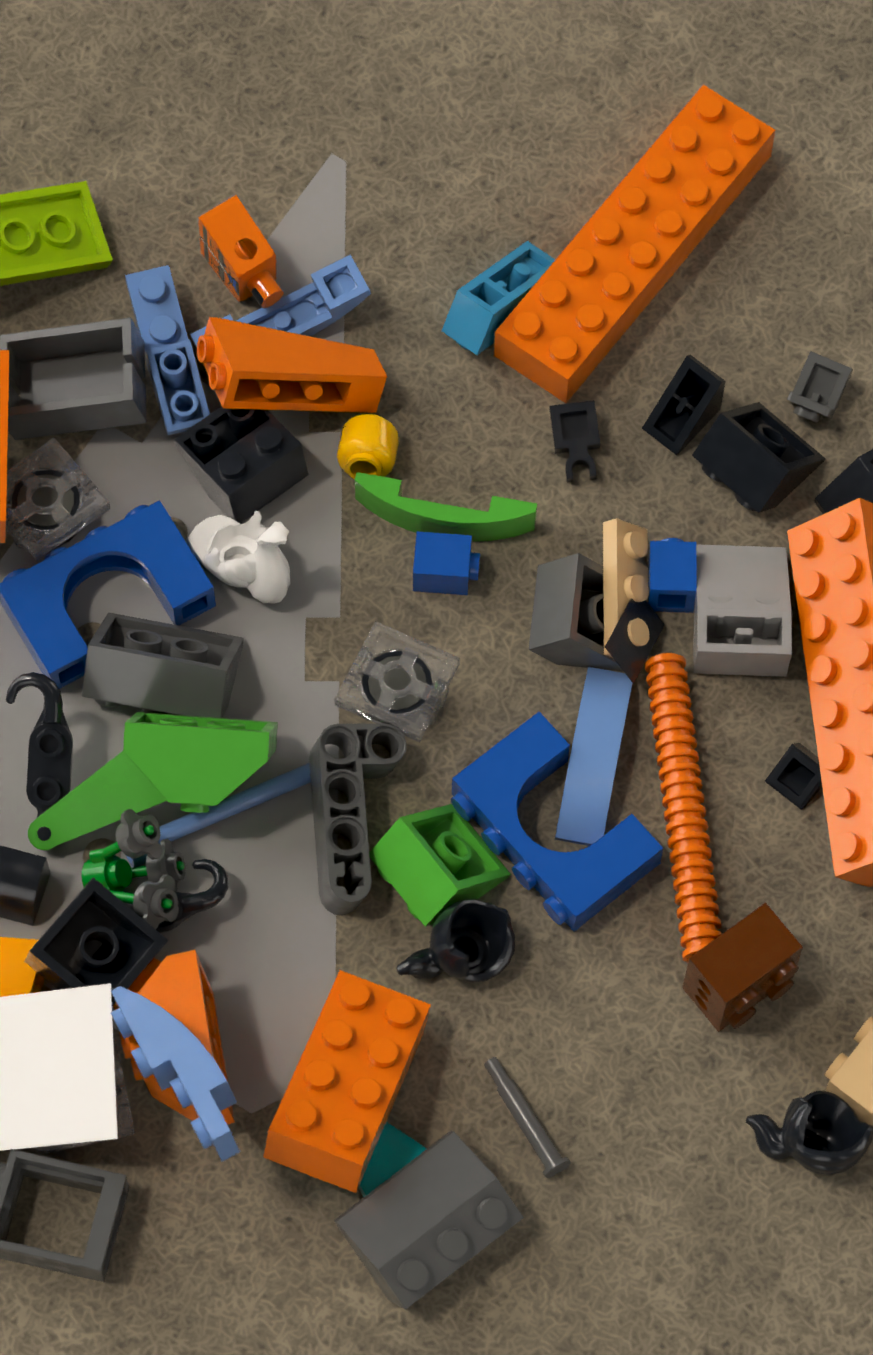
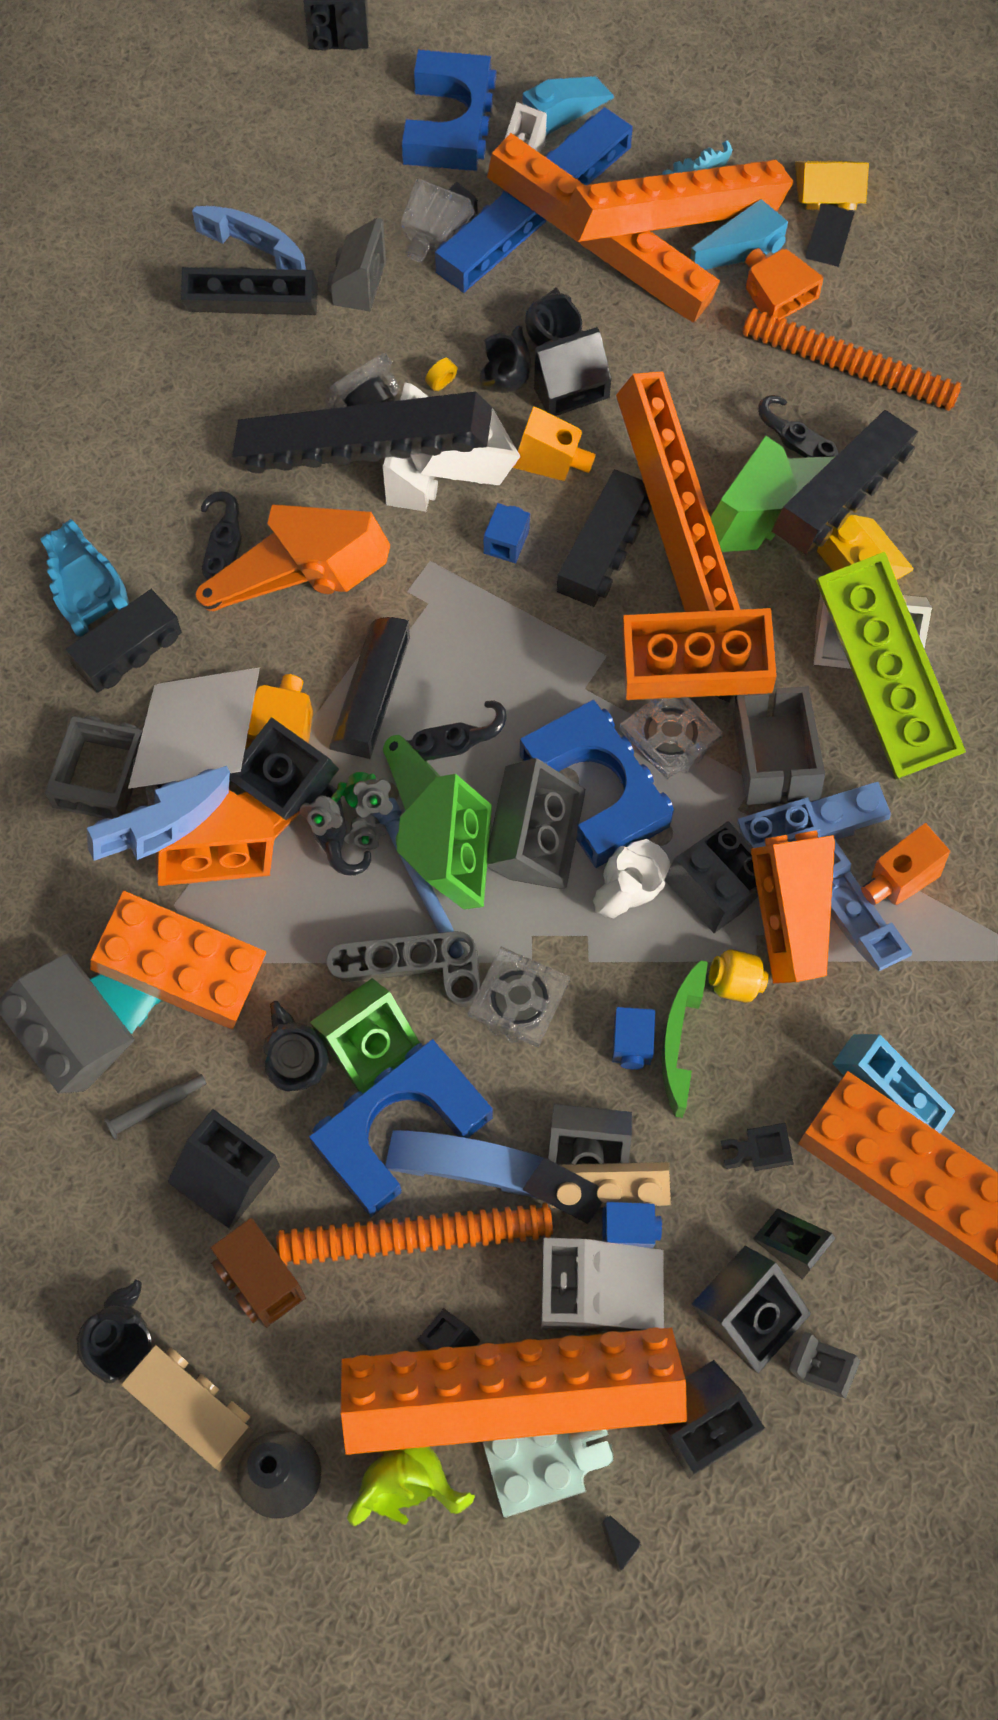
camera: 90 degrees right, 0 degrees up
(612, 1021) = (222, 1169): none -> black slope

